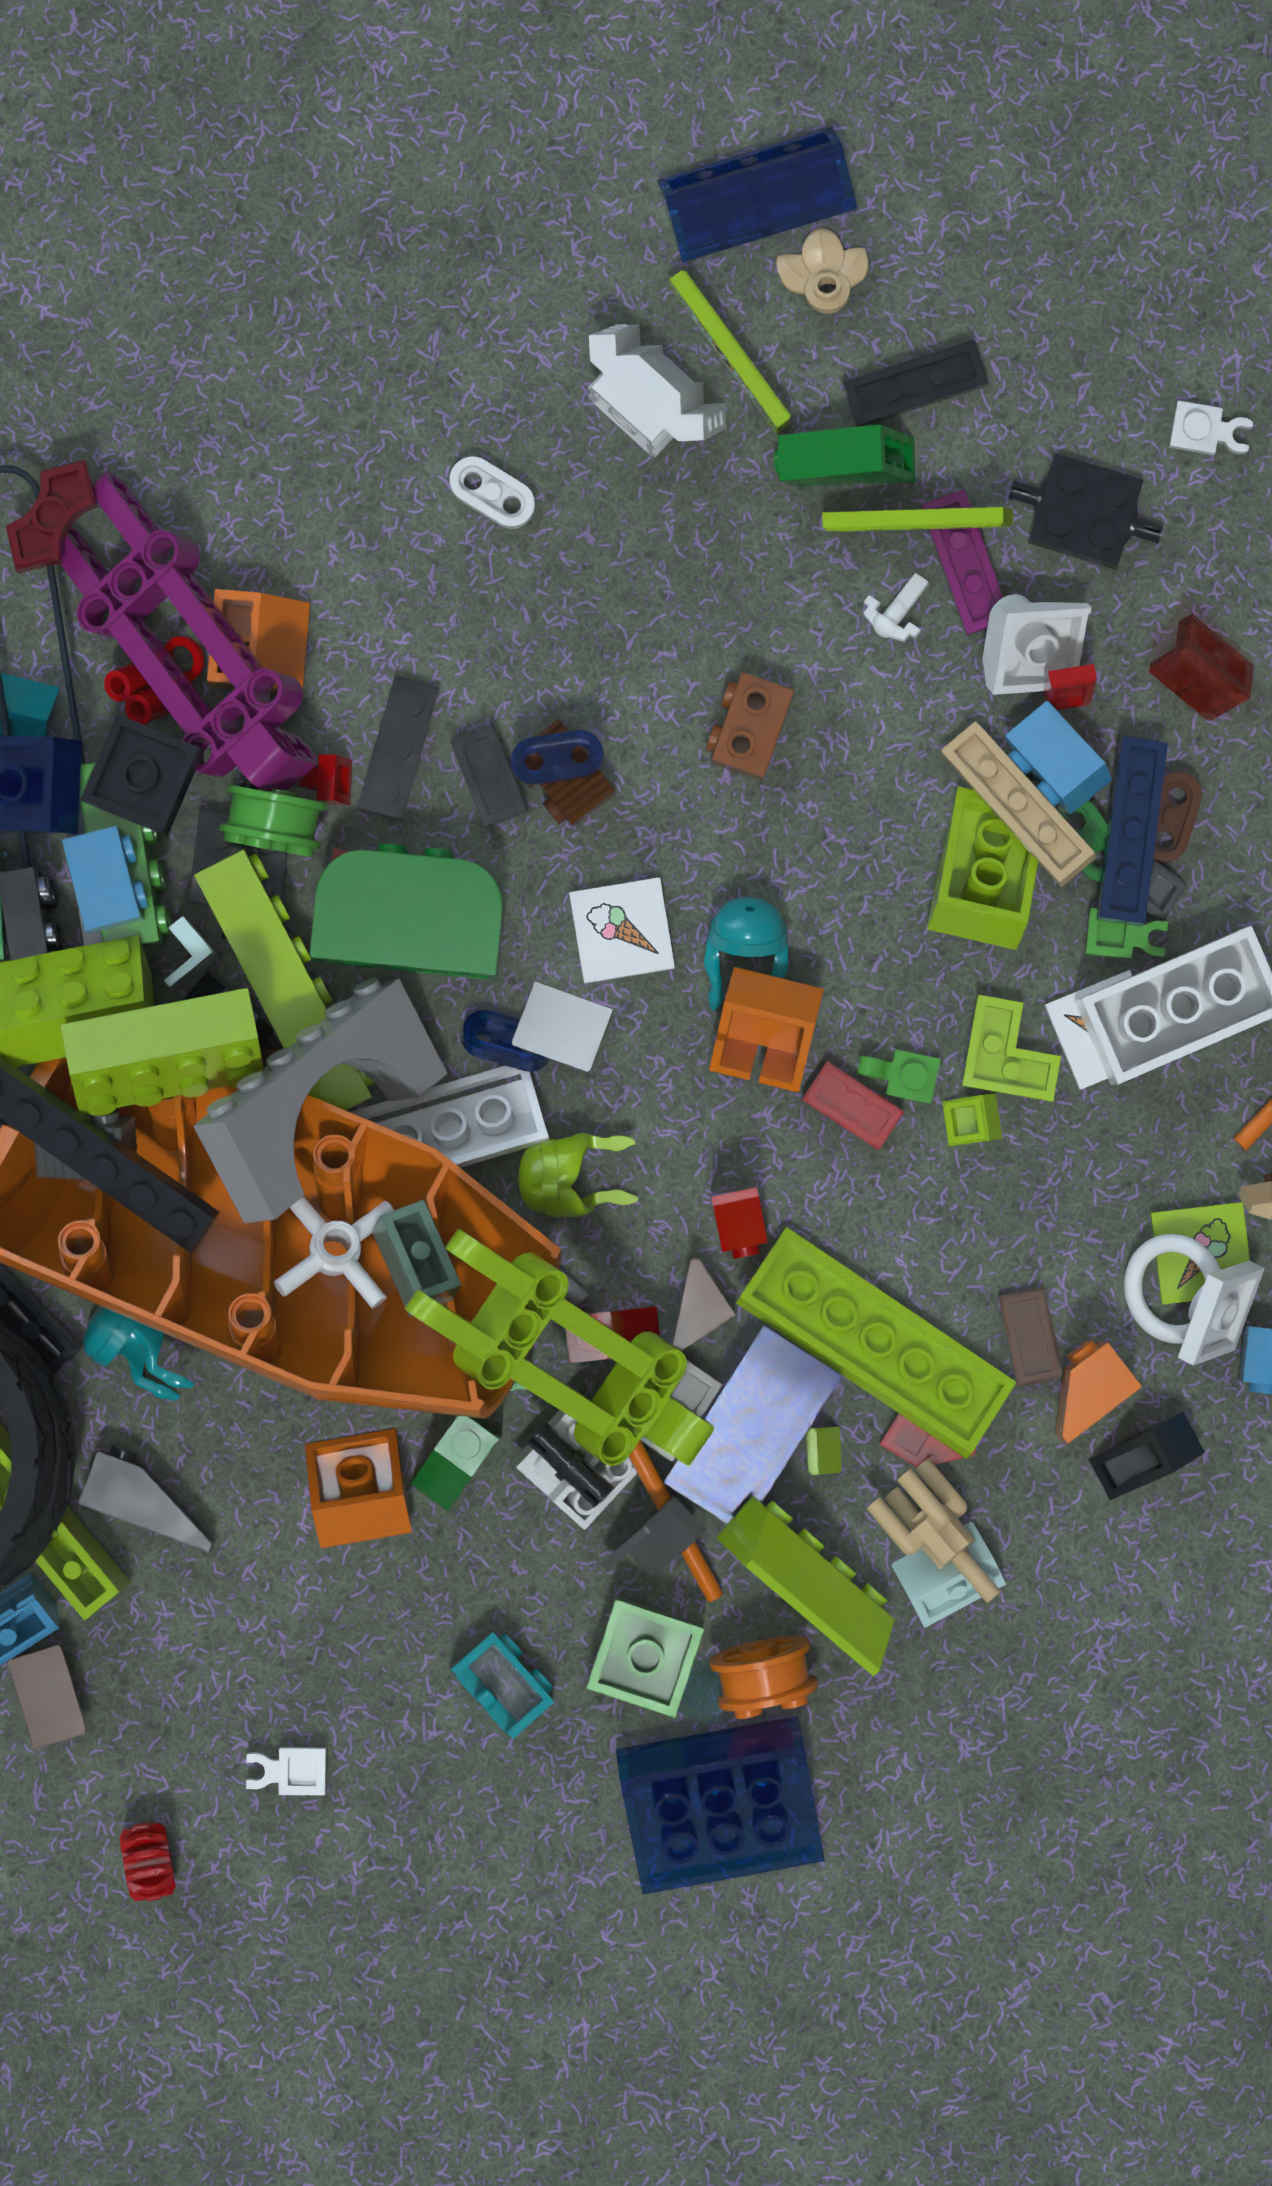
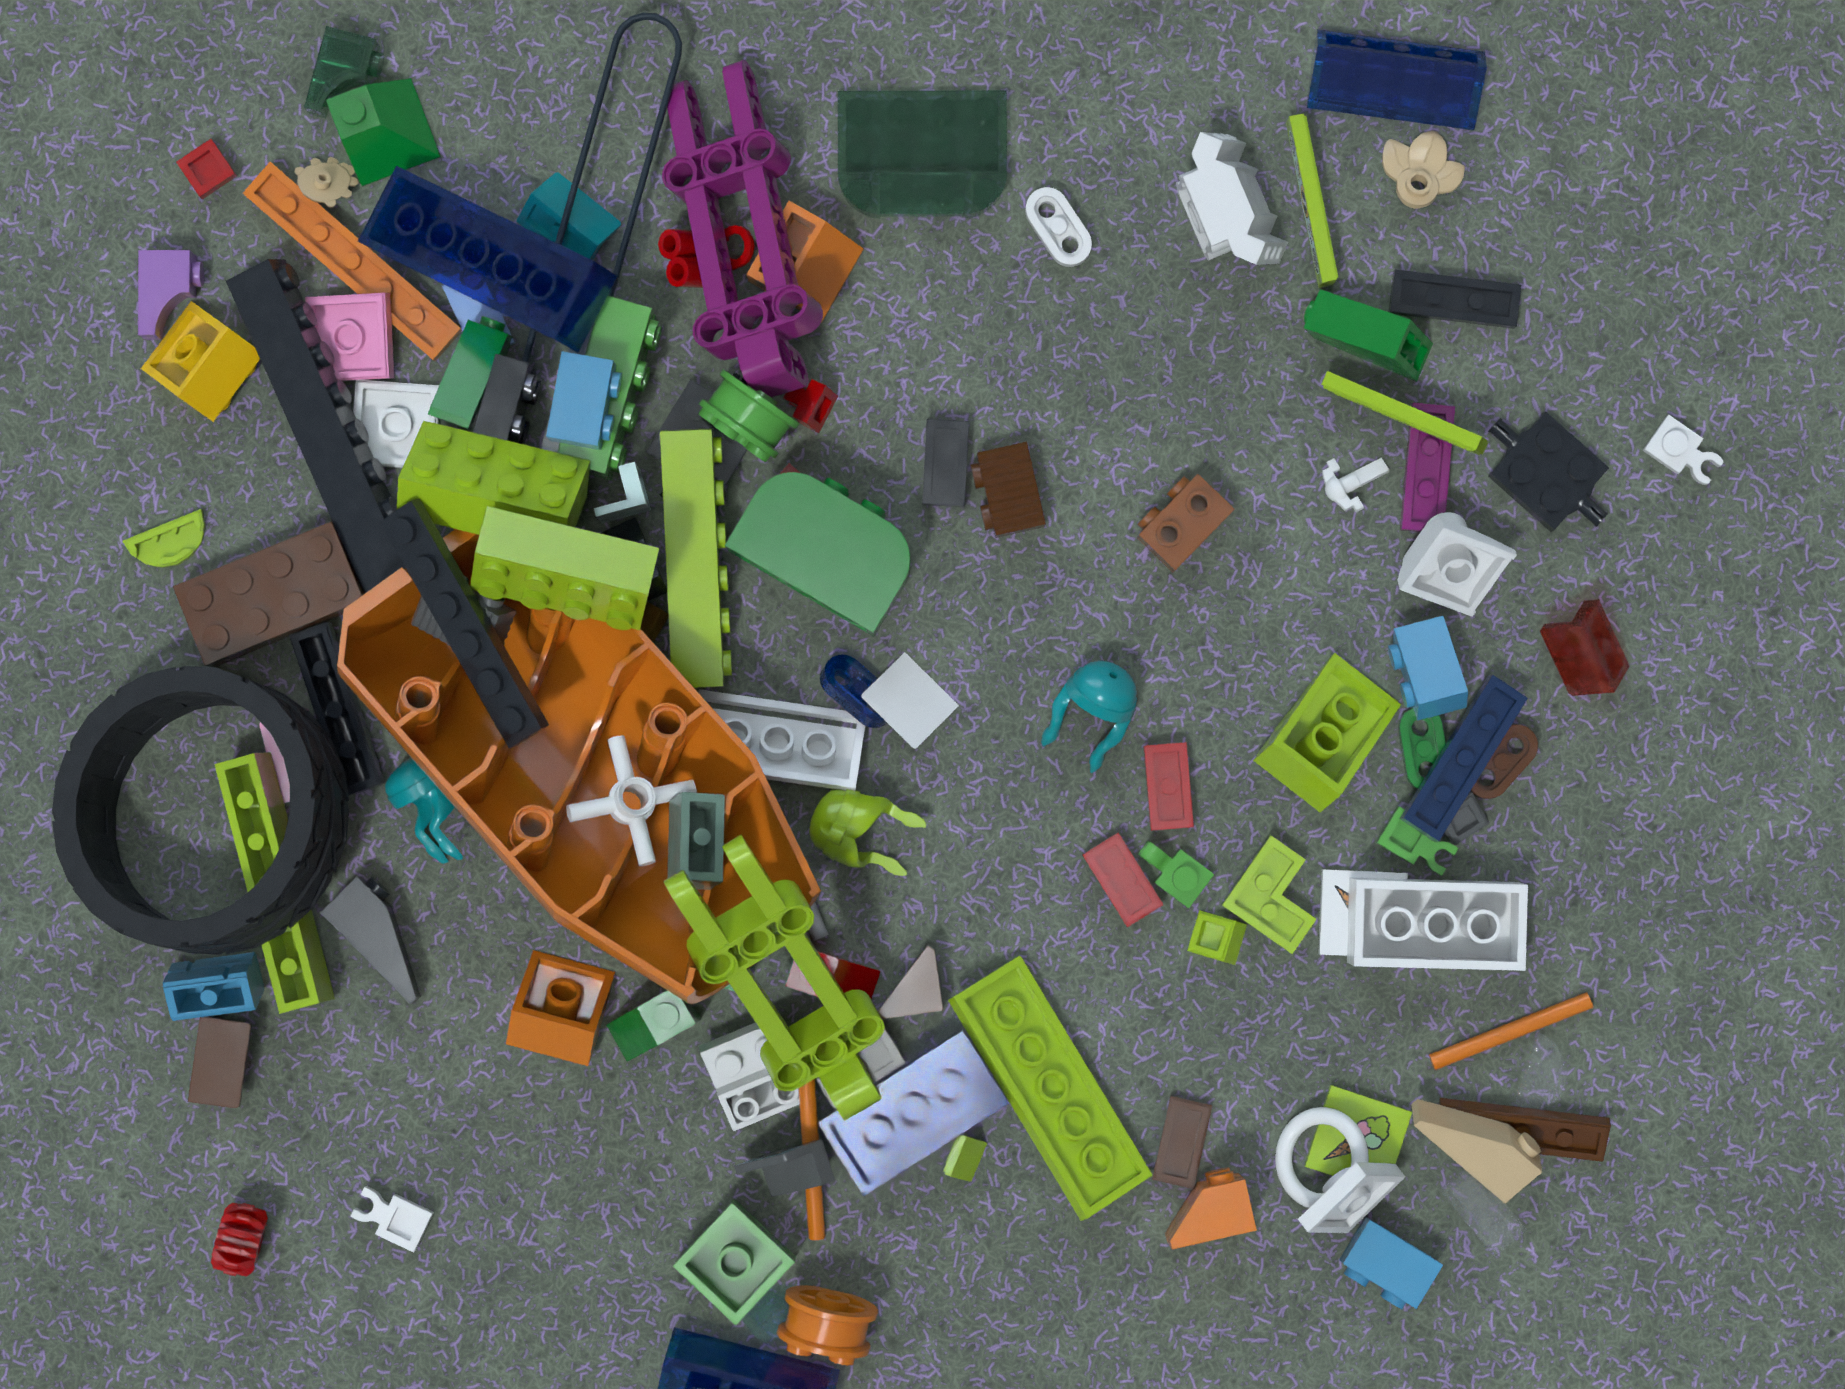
camera: 20 degrees right, 0 degrees up
(40, 534) = (663, 87): dark red tile -> none
(142, 775) = (654, 328): black tile -> none
(254, 1127) = (610, 667): light grey arch -> none
(323, 480) = (922, 151): none -> clear green plate
(398, 748) = (881, 404): black plate -> none
(503, 1684) = (605, 1228): window -> none
(556, 757) = (1010, 470): clear blue plate -> none
(570, 1465) = (746, 1072): black pin -> none
(622, 930) = (997, 643): white tile -> none
(739, 1222) = (982, 934): red slope -> none
(768, 1014) = (1090, 772): orange piece -> none
(809, 1582) = (901, 1265): lime slope -> none
(855, 993) = (1168, 786): none -> red plate
(915, 1444) = (1043, 1188): tile -> none
(935, 1527) = (1027, 1266): tan plant -> none
(943, 1591) = (1021, 1309): light aqua panel -> none
(1018, 804) = (1378, 691): tan plate -> none
(1070, 687) = (1468, 613): red tile -> none
(1147, 1456) = (1233, 1288): black slope -> none

